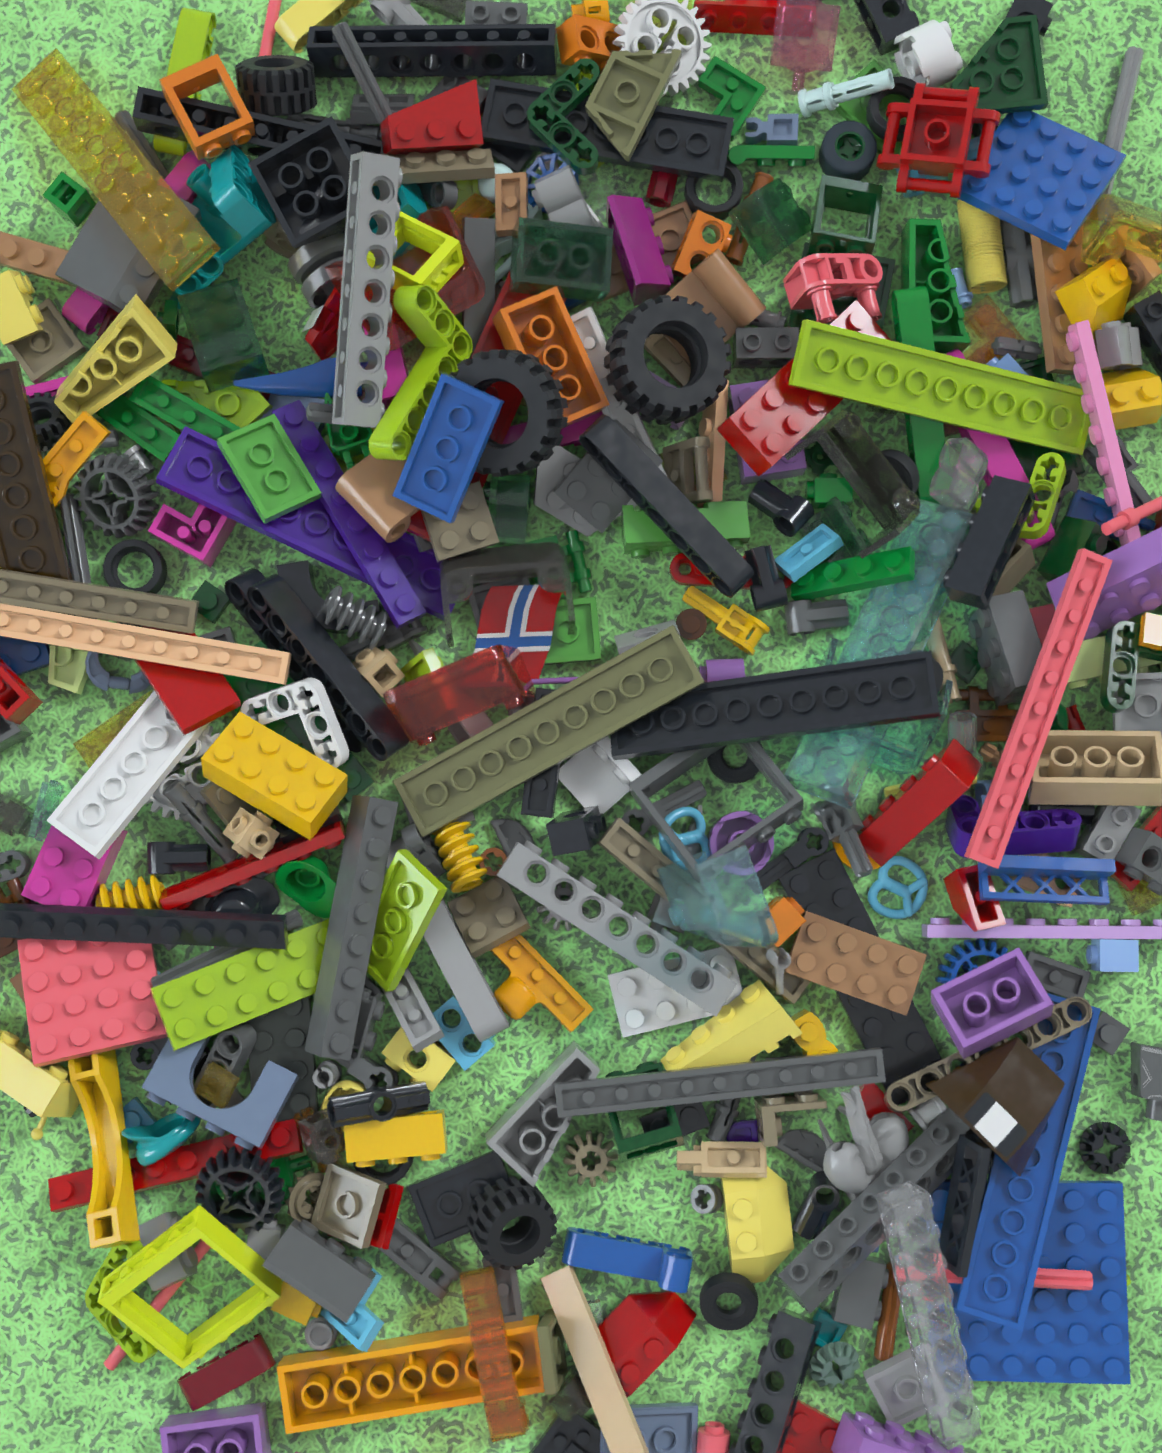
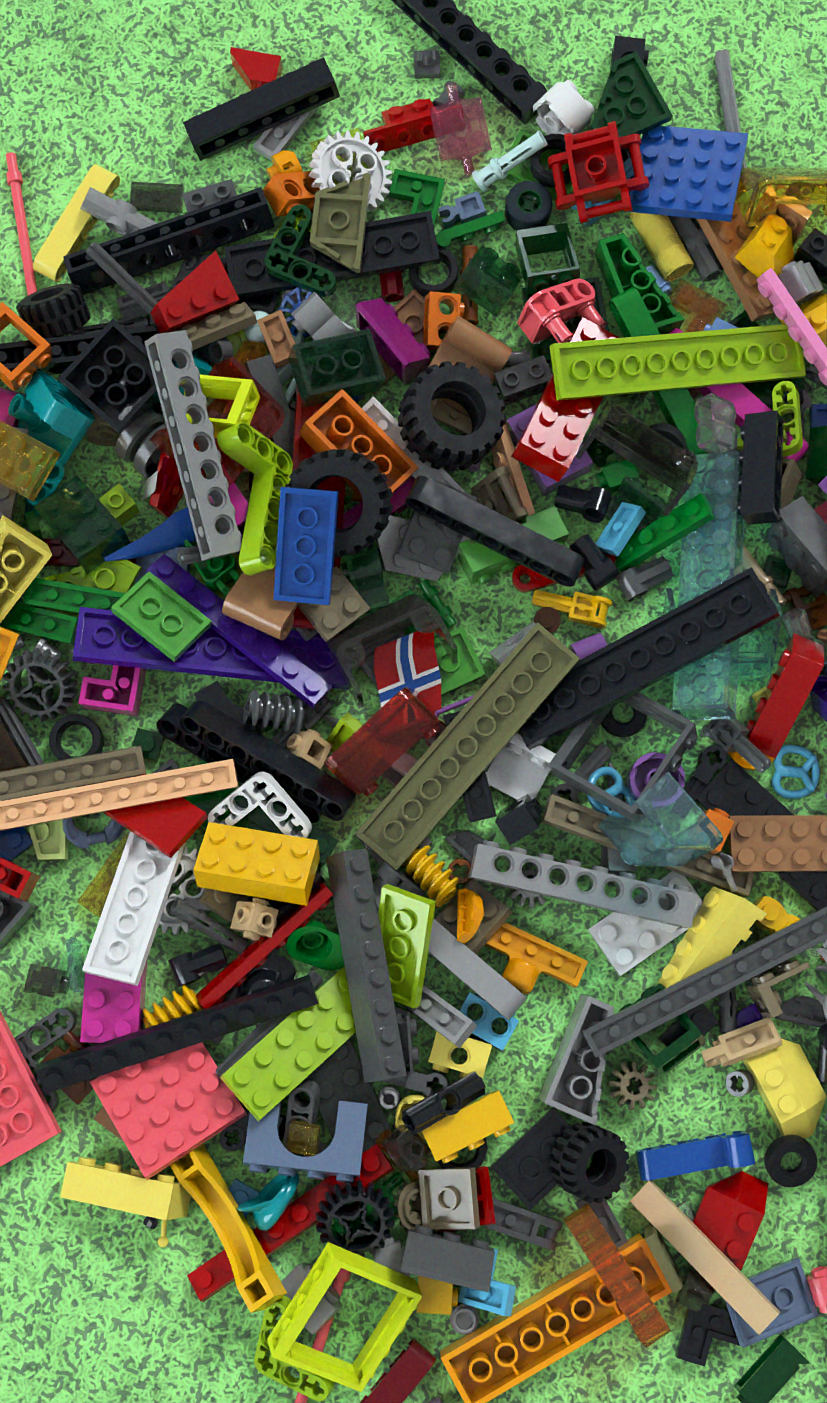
camera: 20 degrees left, 5 degrees down
(271, 328) = (119, 504): none -> lime brick
(482, 913) = (469, 914): none -> light orange plate
(1016, 348) = (722, 311): dark grey piece -> none

